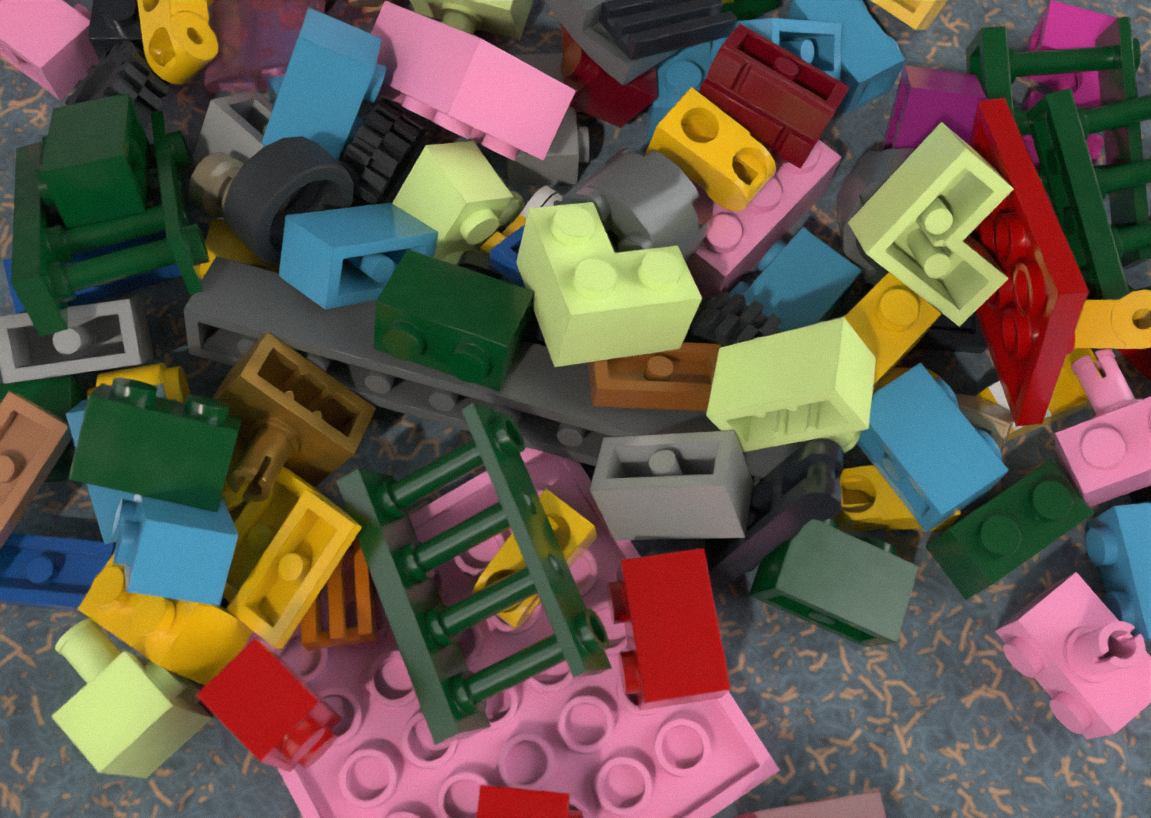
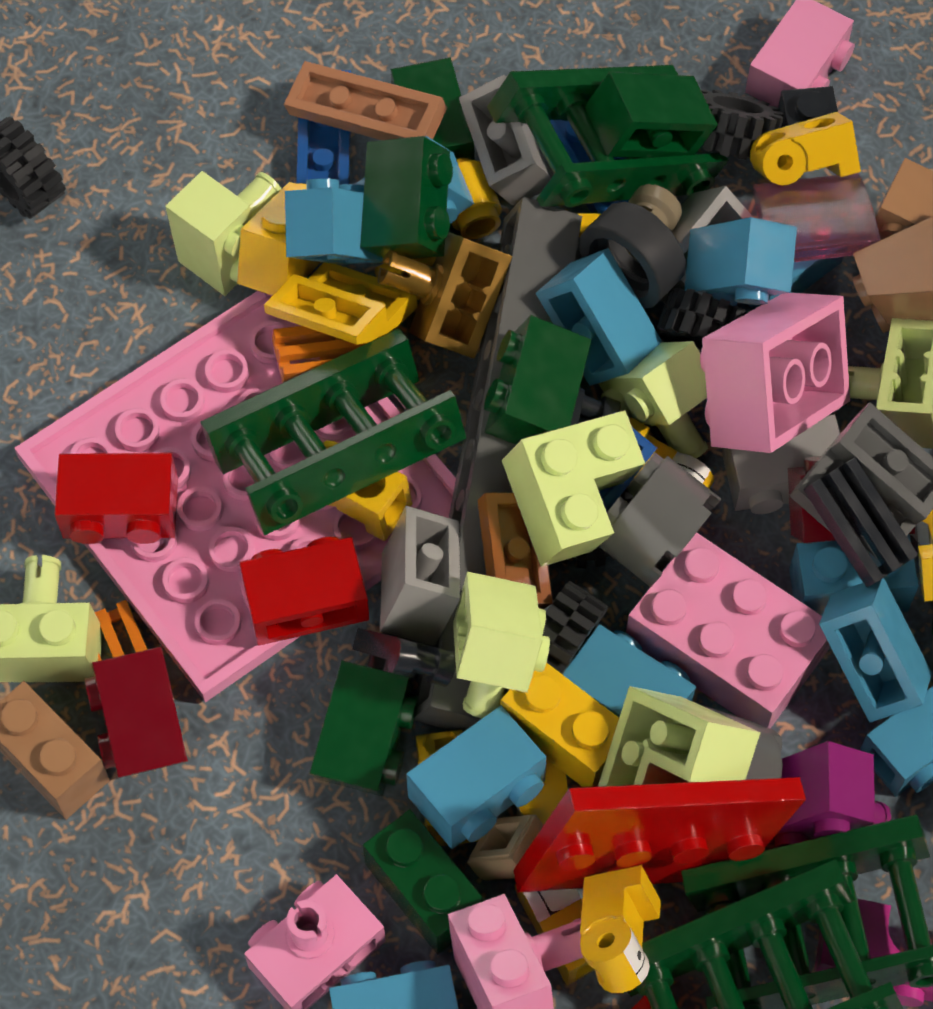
camera: 90 degrees right, 5 degrees down
(271, 708) = (219, 310): red brick -> none
(713, 151) = (734, 575): yellow leg -> none
(772, 94) = (794, 615): dark red brick -> none

